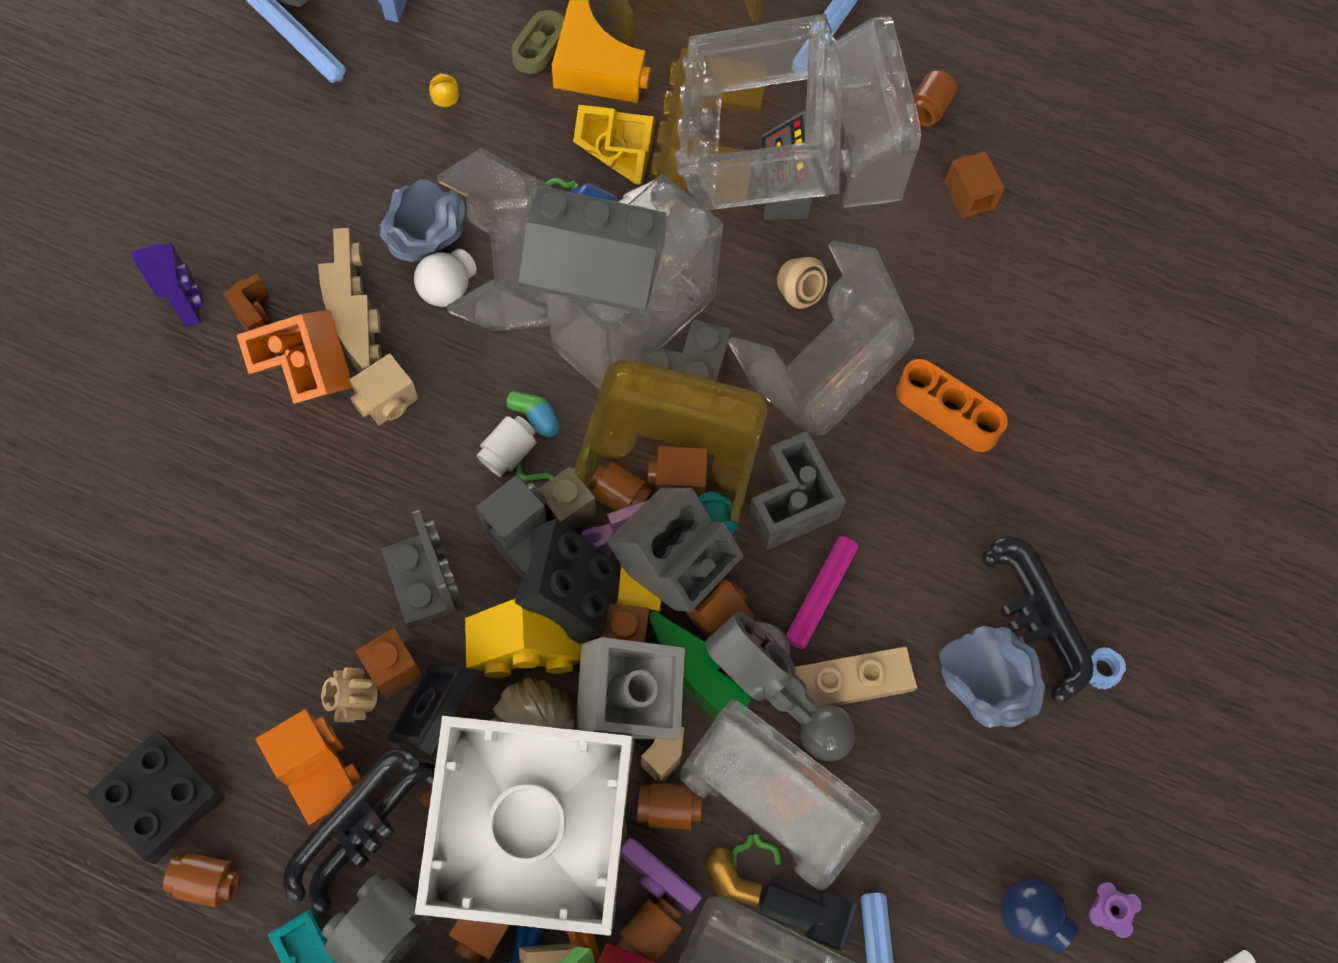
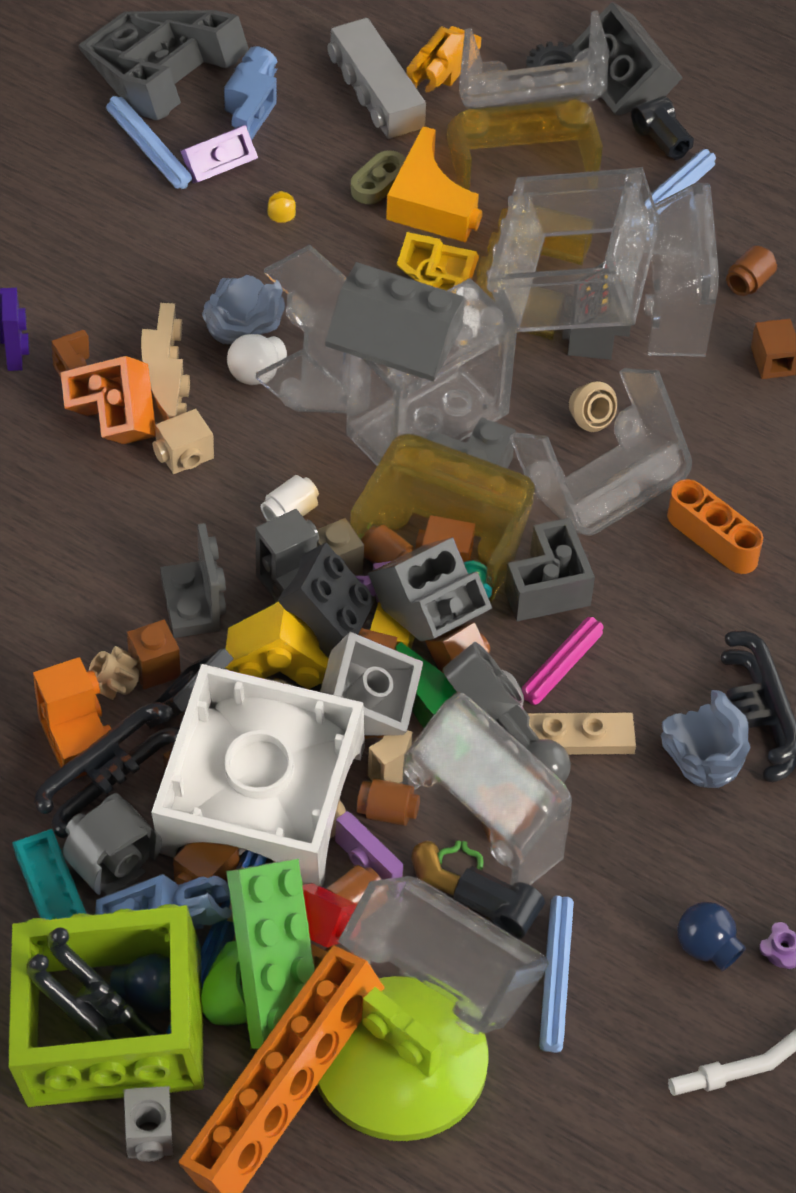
camera: 10 degrees right, 15 degrees down
(370, 38) = (219, 154): none -> plate
(537, 411) = (324, 479): arm -> none

